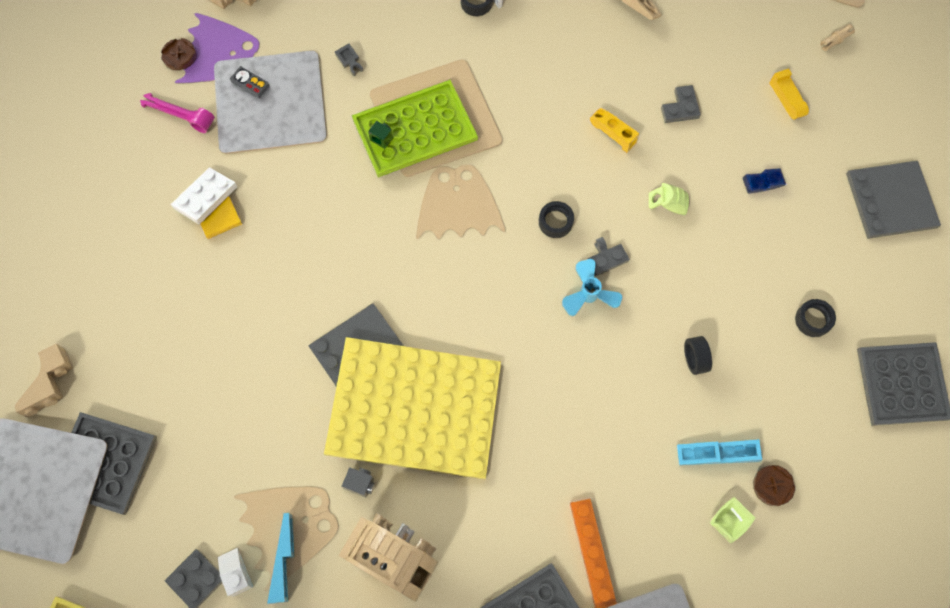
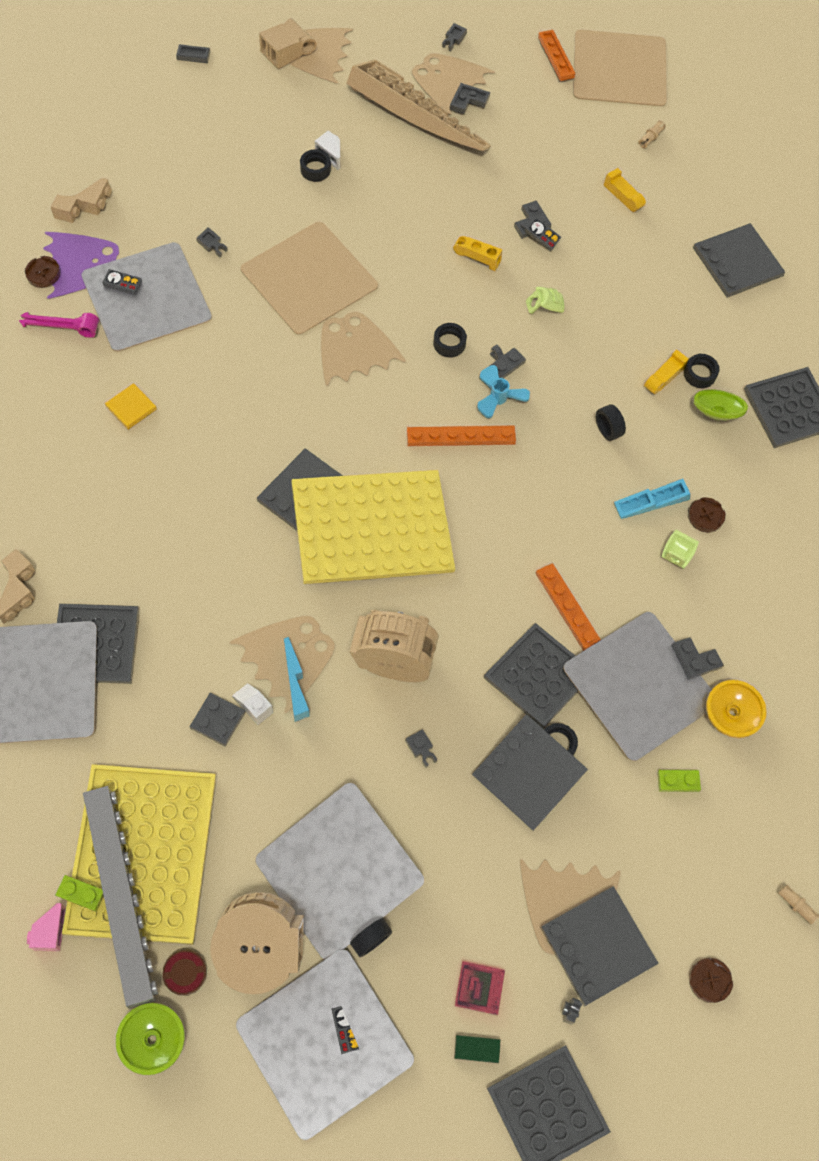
camera: 20 degrees left, 5 degrees down
(204, 195) = (113, 390): white plate -> none
(359, 482) = (342, 600): dark grey brick -> none
(380, 134) = (266, 299): dark green plate -> none
(421, 127) = (294, 289): lime plate -> none
(537, 328) = (461, 435): none -> orange plate
(687, 124) = (542, 234): none -> tile
(764, 181) = (626, 267): clear blue slope -> none
(776, 311) = (667, 372): none -> yellow leg
(825, 364) = (720, 404): none -> lime dish

